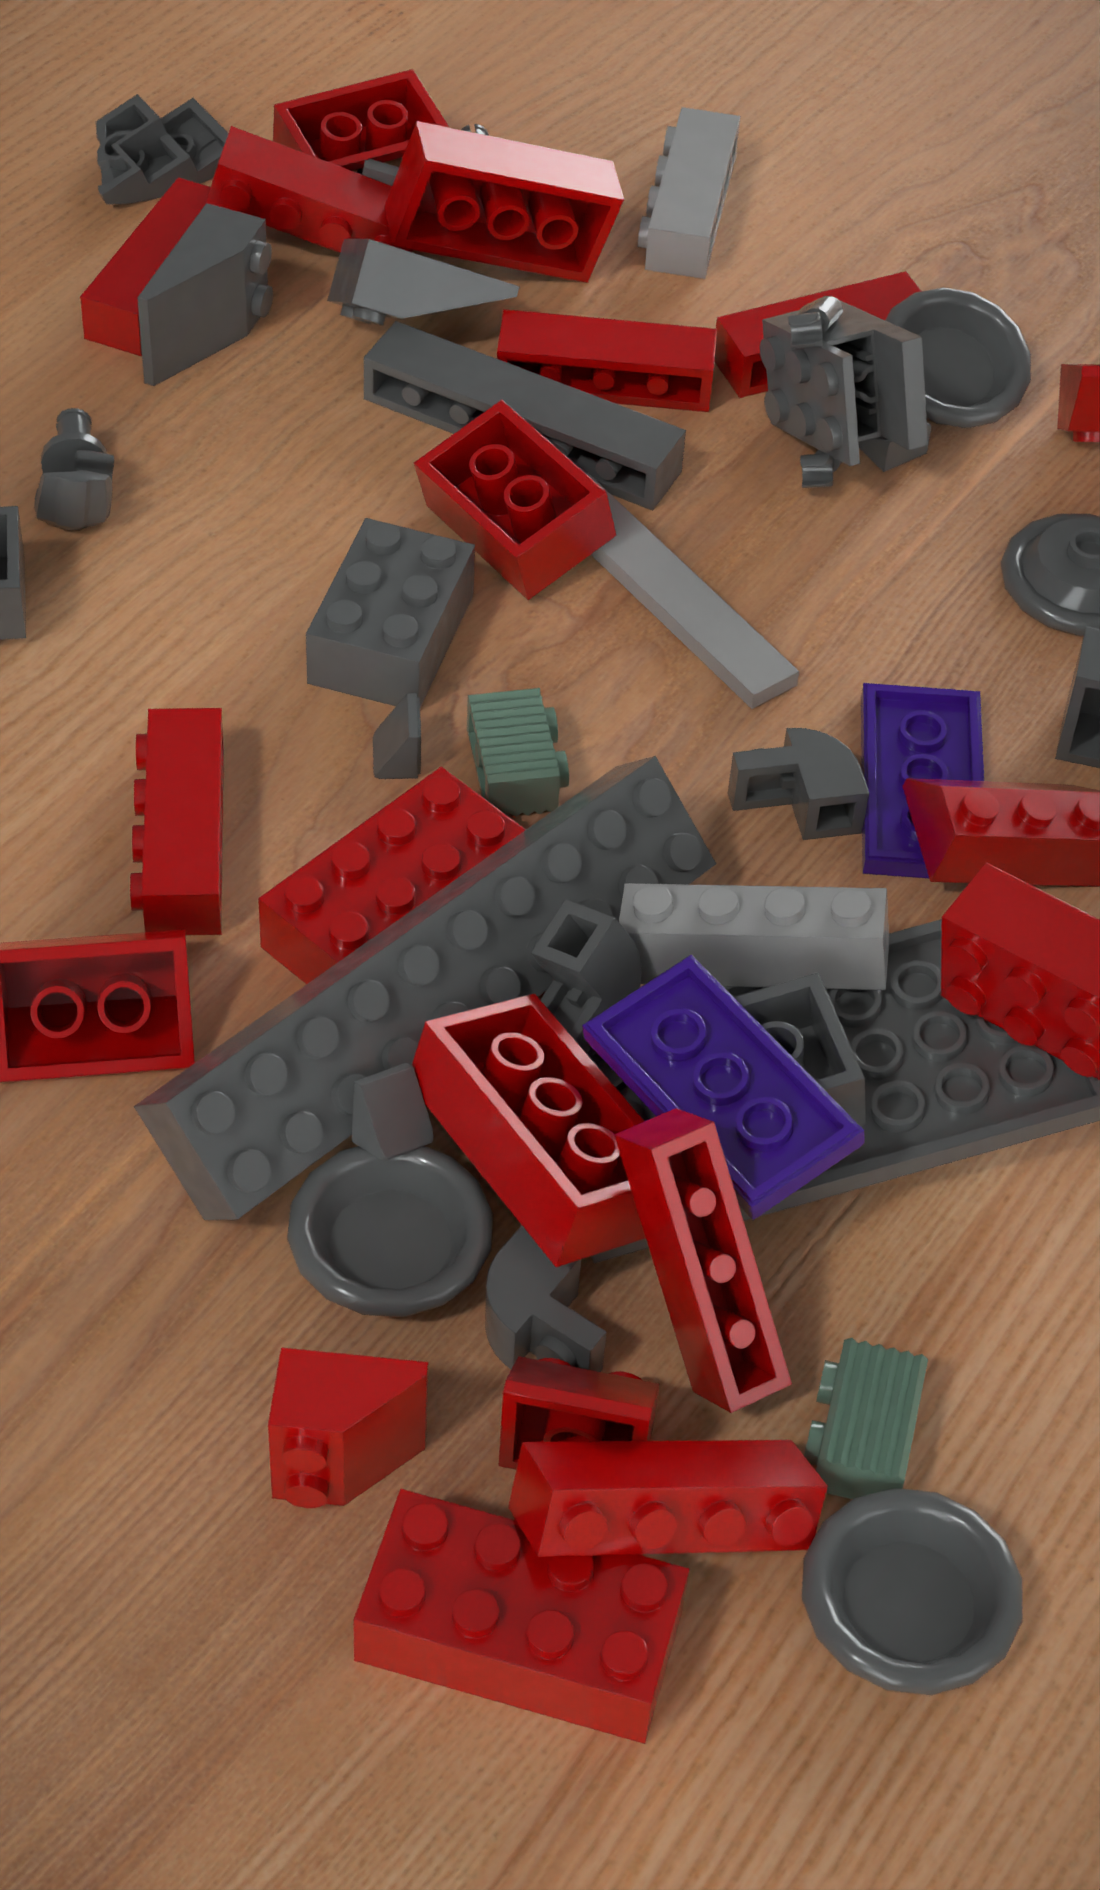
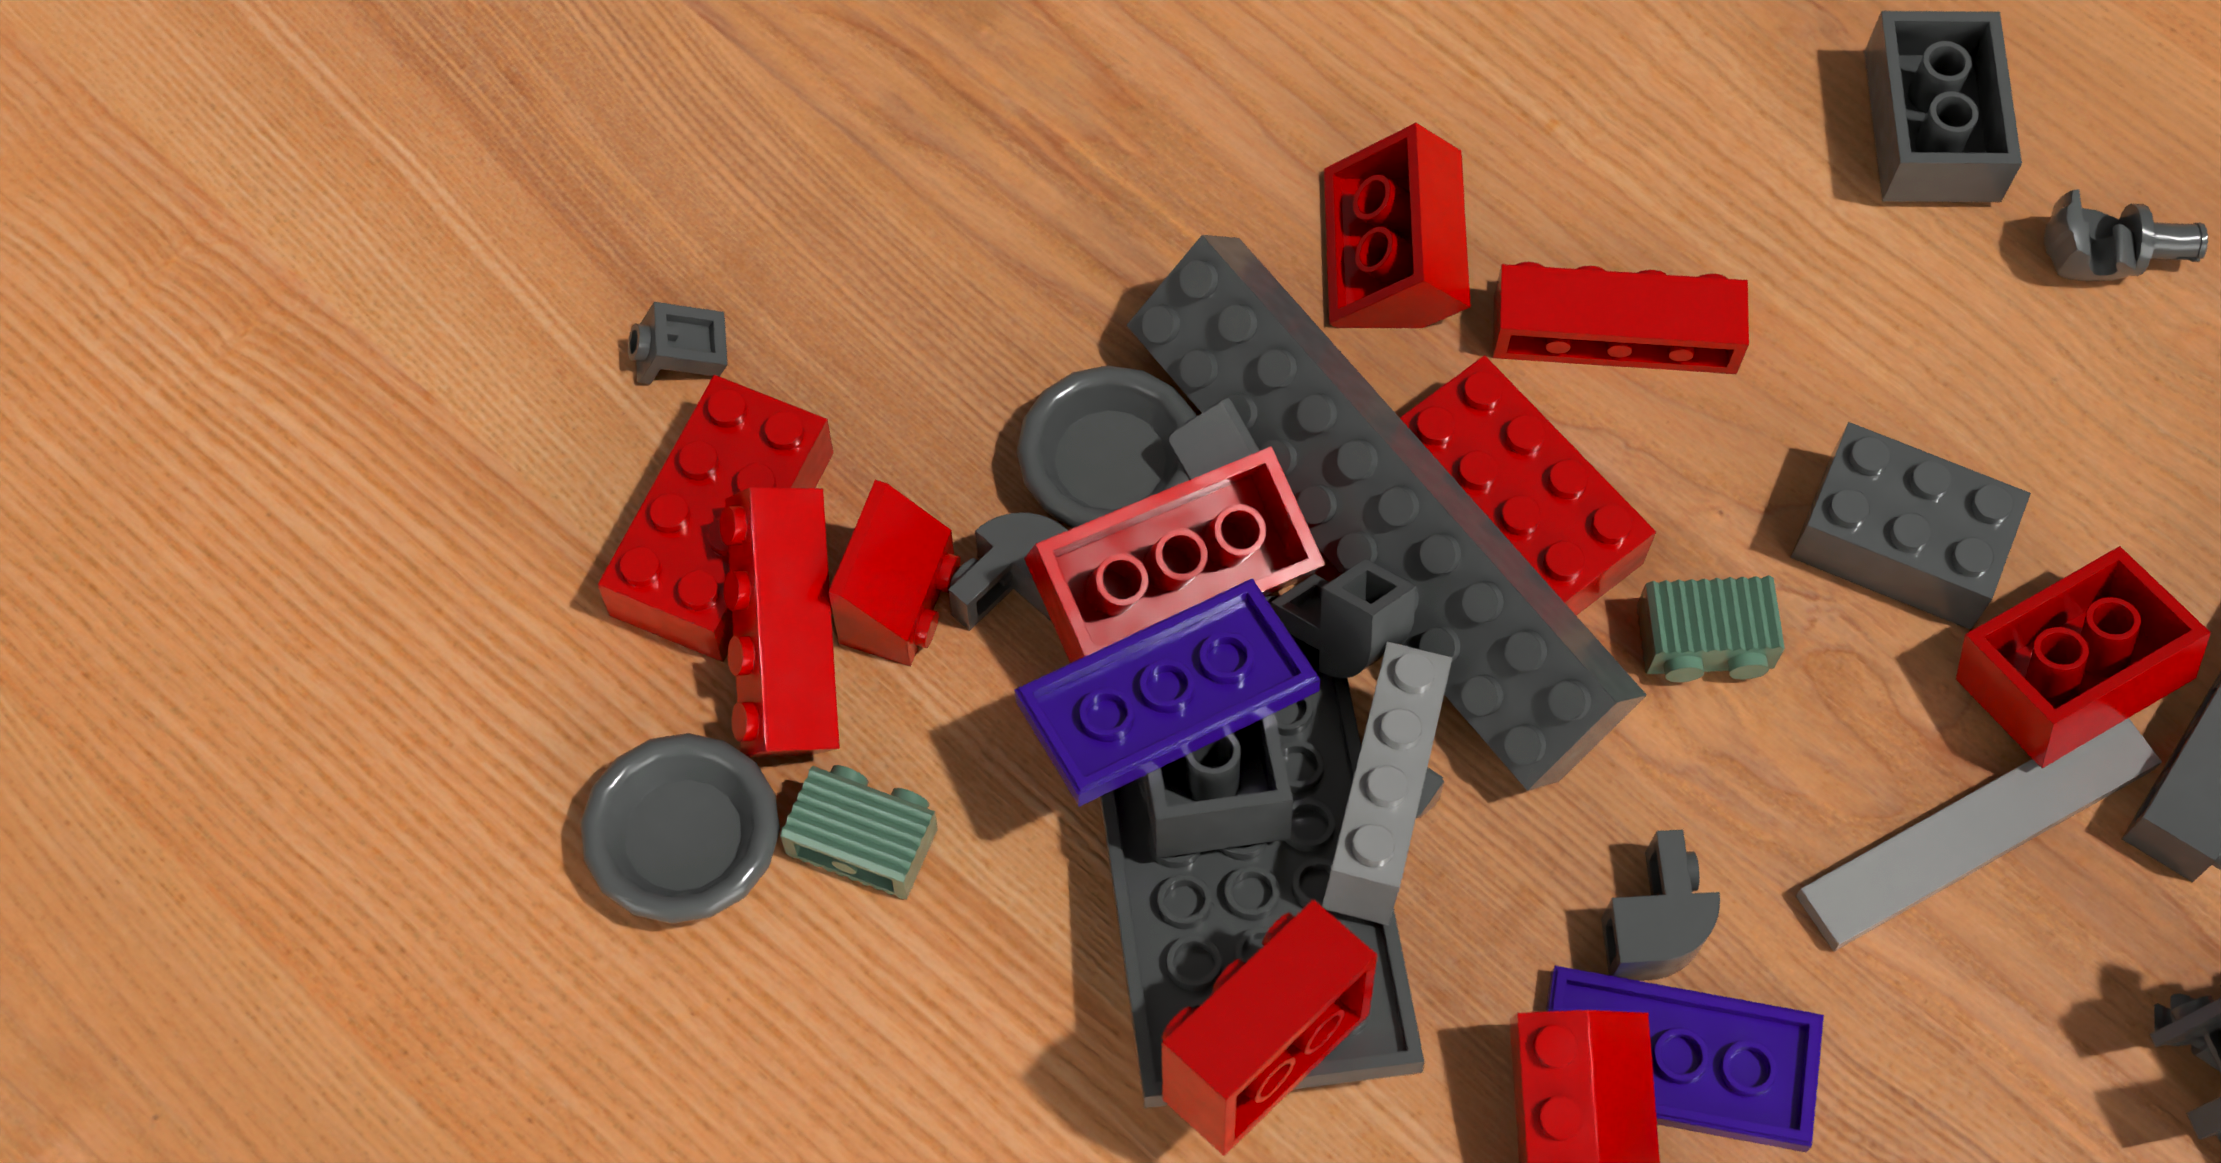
camera: 100 degrees right, 15 degrees up
(284, 1709) = (678, 341): none -> dark grey bracket
(342, 1423) = (902, 378): red slope -> none
(399, 742) = (1730, 529): dark grey slope -> none
(703, 1259) = (973, 677): red brick -> none

